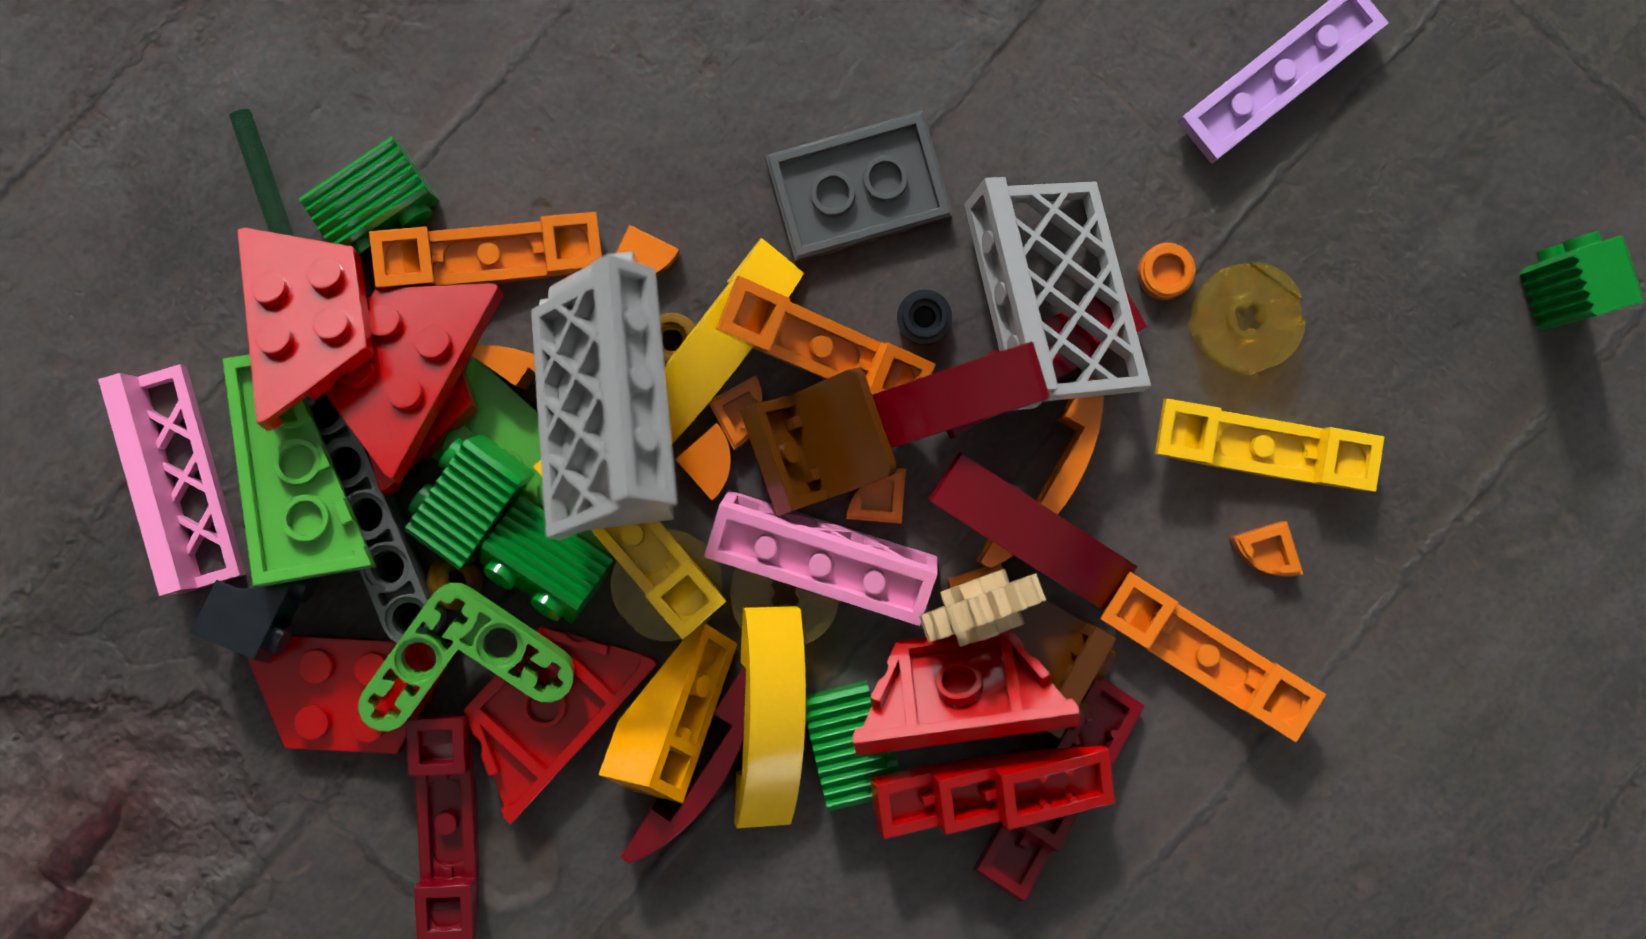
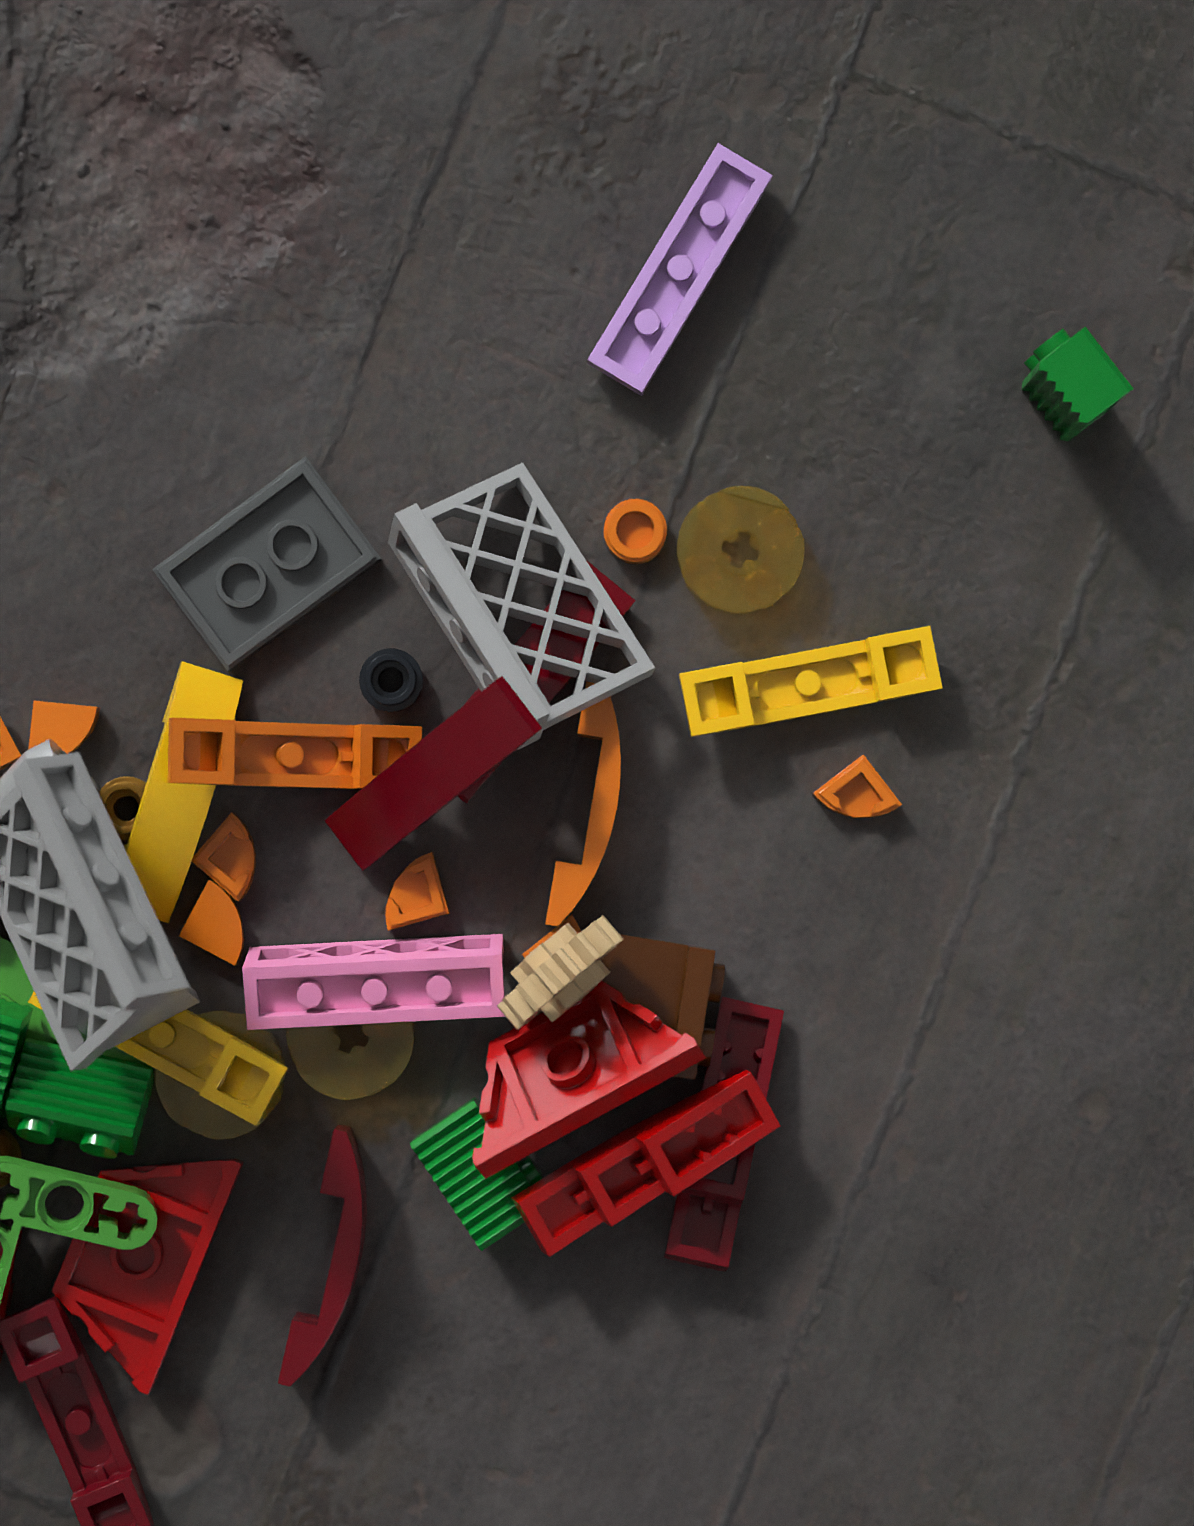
camera: 20 degrees left, 0 degrees up
(669, 720) = (276, 1220): light orange slope -> none
(772, 716) = (385, 1174): yellow slope -> none
(819, 442) = (324, 861): reddish brown bracket -> none
(1031, 531) = (591, 872): dark red slope -> none
(1212, 657) = (832, 931): orange slope -> none

